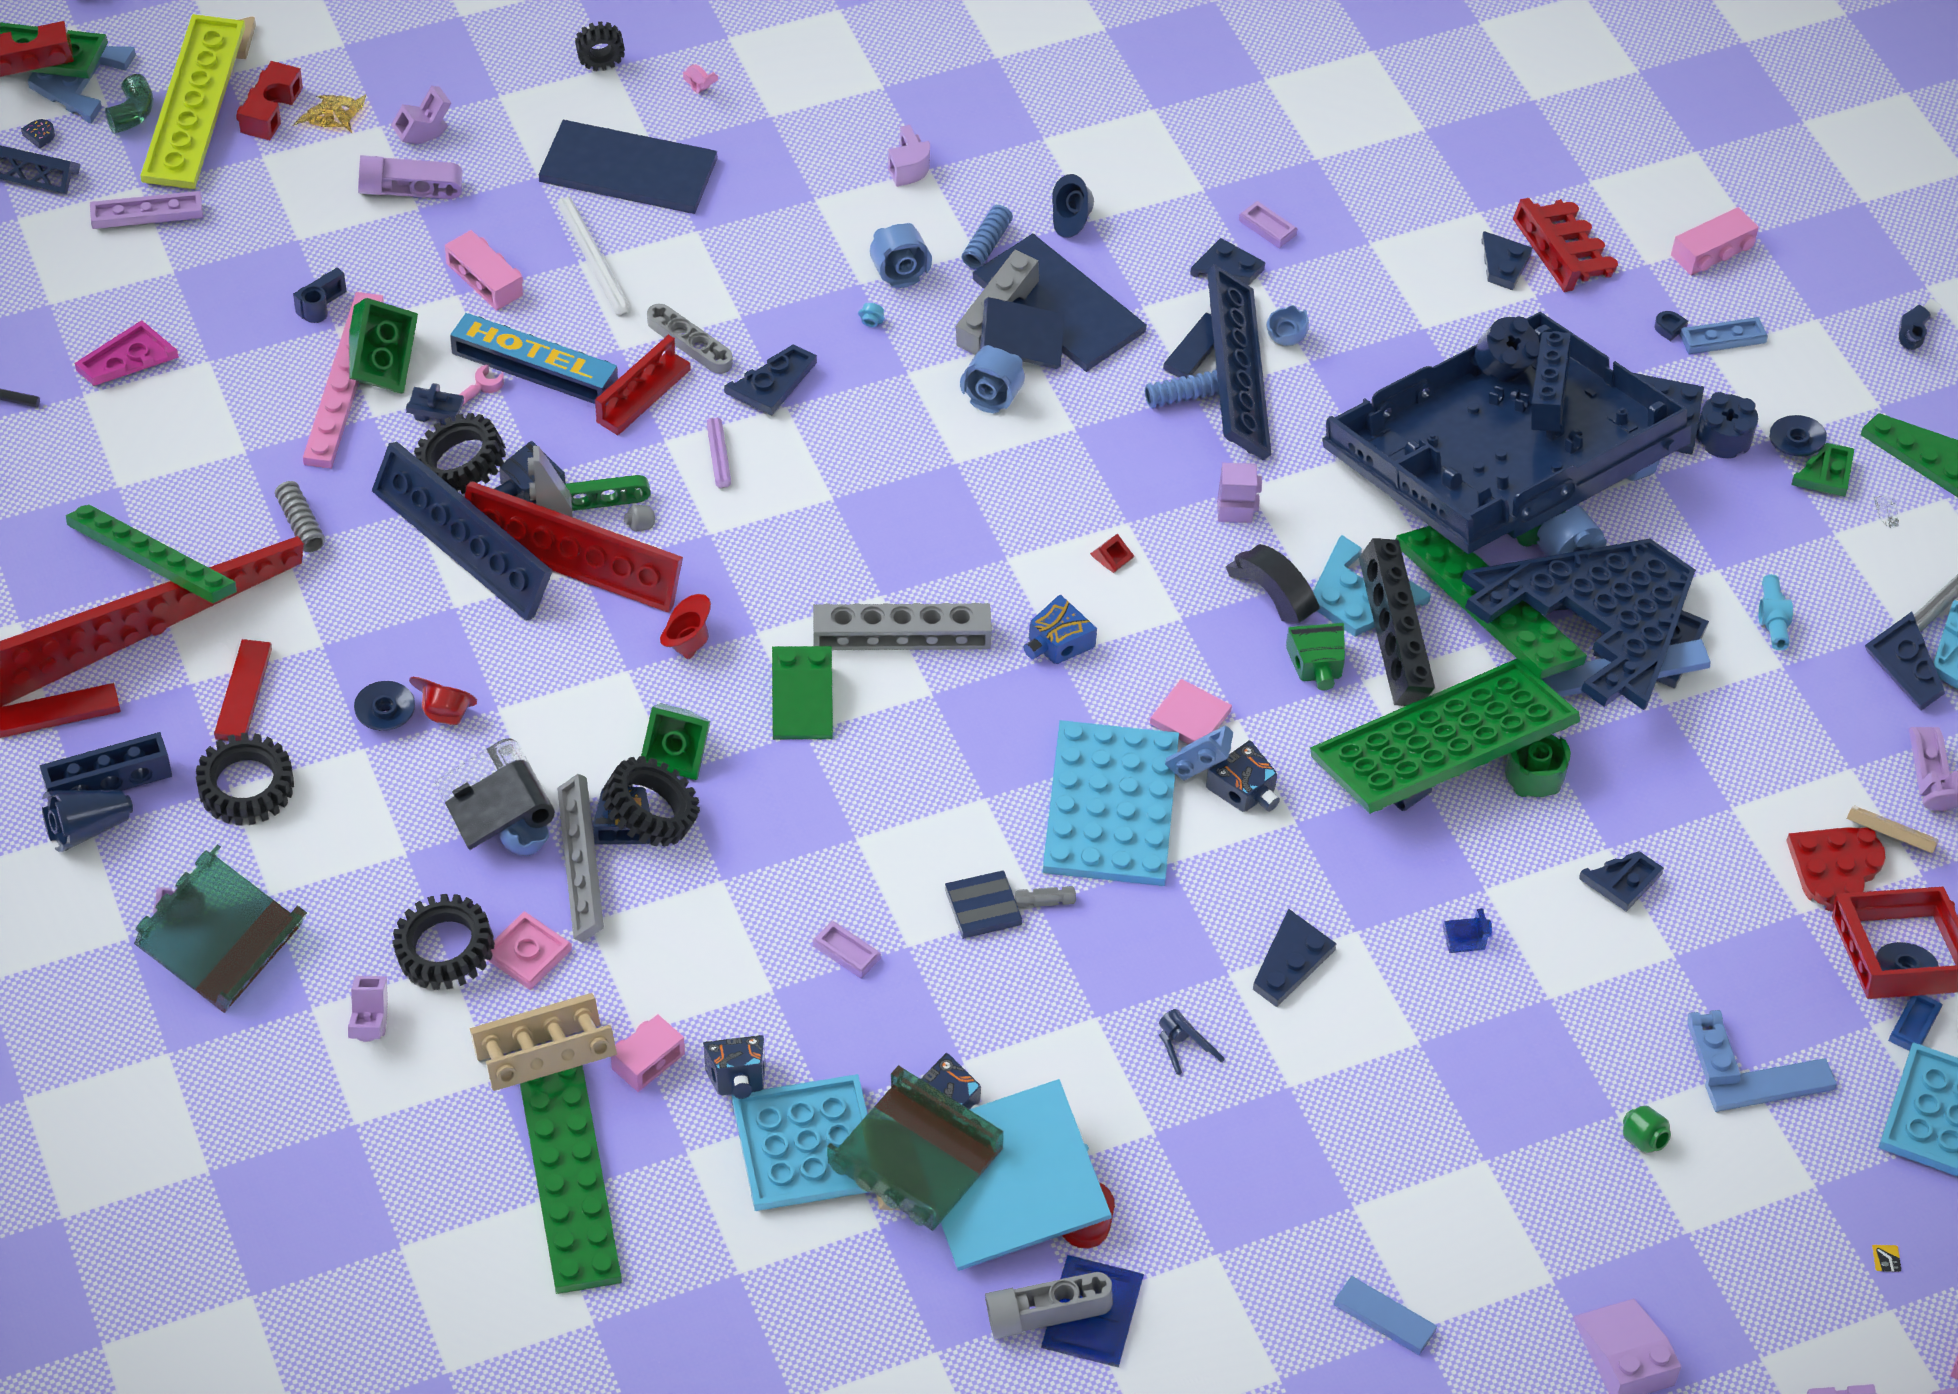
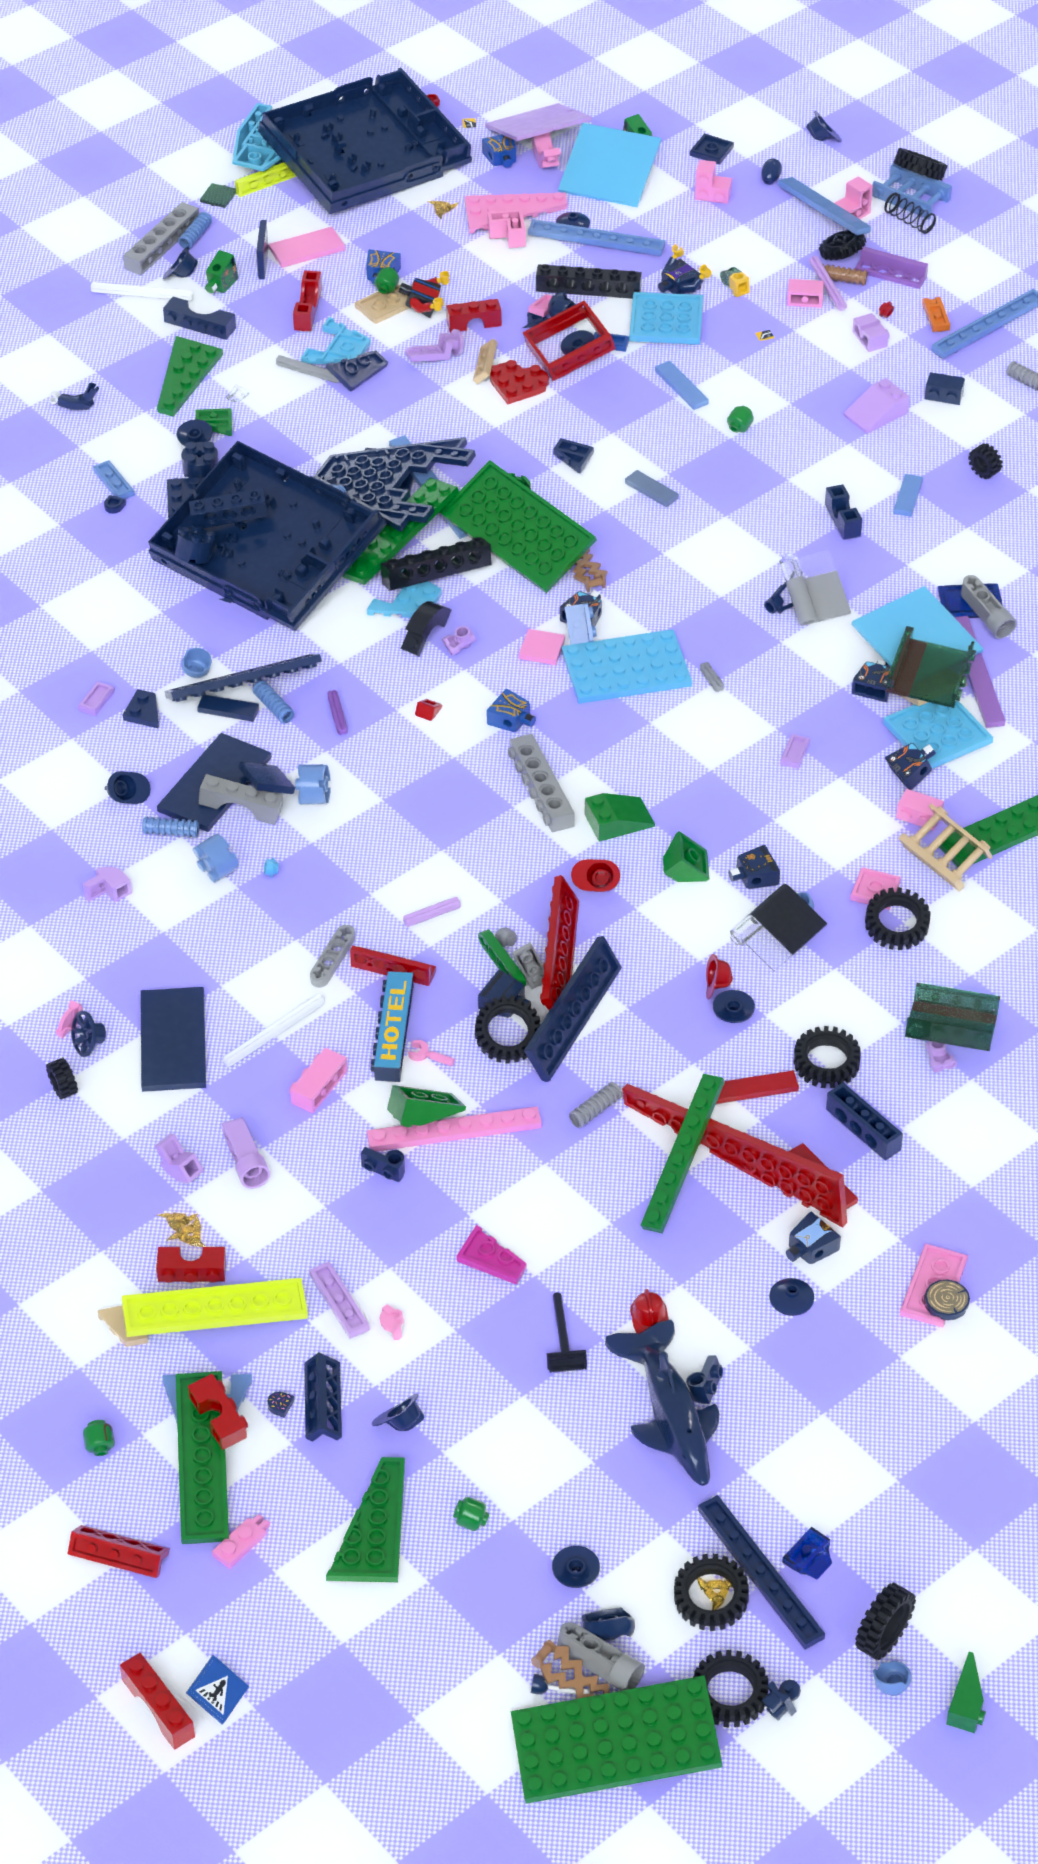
camera: 105 degrees left, 5 degrees down
(83, 814) = (912, 1120): dark blue cone -> none
(90, 248) = (392, 1321): none -> bright pink piece
(135, 108) = (231, 1346): clear green cylinder -> none
(369, 1008) = (966, 938): lavender brick -> none
(434, 404) = (463, 1063): dark blue hips -> none
(580, 858) = (800, 877): light grey plate -> none
(638, 819) = (733, 850): black tyre -> none
(662, 88) = (90, 1033): none -> dark blue wheel
(774, 381) = (353, 899): dark blue wing -> none
(912, 1250) = (982, 686): none -> medium lavender tile
(983, 904) = (731, 701): dark blue tile -> none
(1141, 453) = (337, 712): none -> medium lavender axle
(1173, 1069) = (814, 587): none -> light grey door
(1233, 617) = (462, 639): none -> lavender plate
(1238, 492) = (362, 650): lavender brick -> none
(1291, 958) = (695, 569): dark blue wing -> none
(1317, 652) = (470, 598): green torso -> none
(1361, 818) = (599, 575): none -> medium nougat piece
(1376, 1191) = (846, 520): none -> dark blue arch
(1468, 934) = (643, 506): clear blue bracket -> none
(1504, 259) = (85, 584): dark blue wing -> none
(1512, 959) = (651, 488): none -> sand blue tile
(1550, 242) = (66, 563): red fence -> none
(1713, 1048) = (671, 405): medium blue plate -> none
(1714, 241) = (33, 491): bright pink brick -> none
(1775, 612) = (343, 425): medium azure pin -> none

